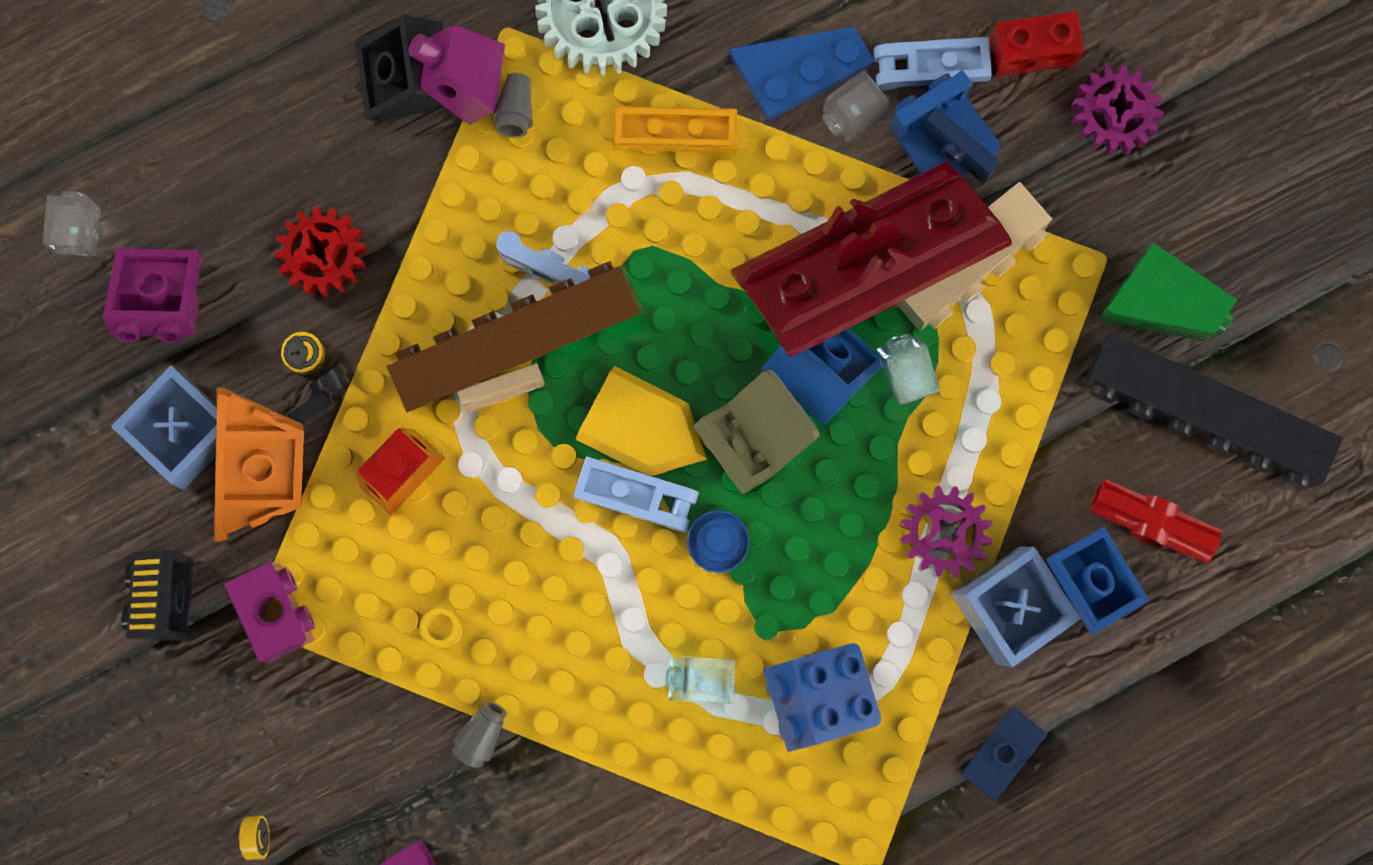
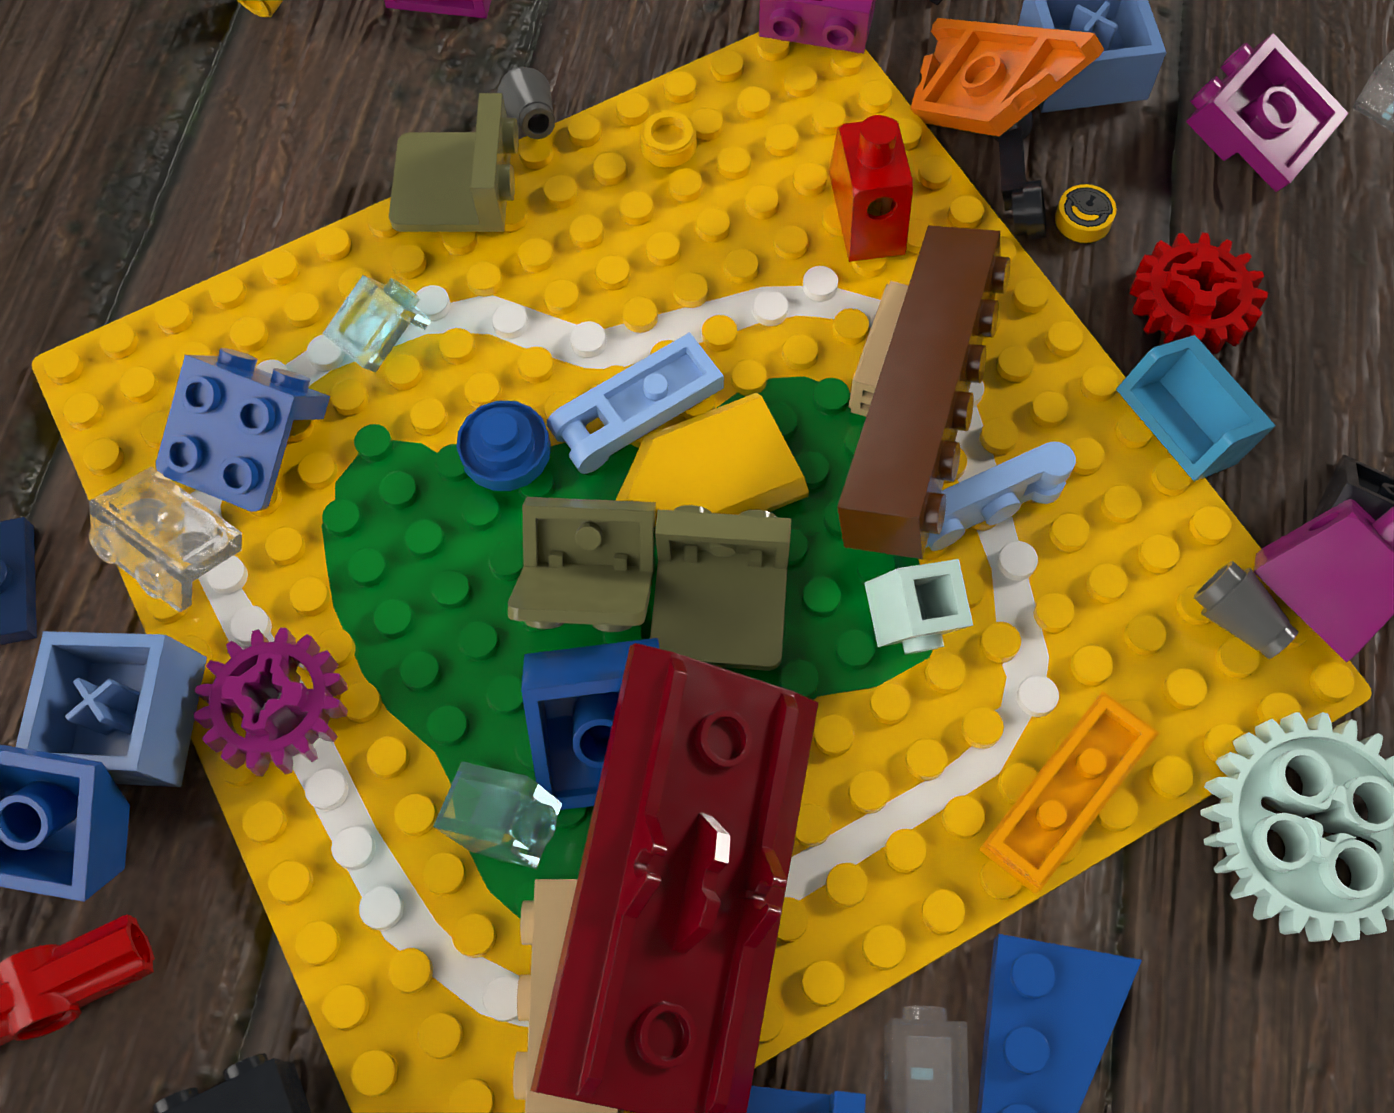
camera: 130 degrees right, 15 degrees down
(406, 204) = (1194, 407): none -> dark azure panel
(571, 725) = (456, 176): none -> olive bracket
(645, 254) = (918, 605): none -> light aqua brick
(710, 361) = (721, 586): none -> olive bracket
(913, 675) = (160, 535): none -> clear bracket

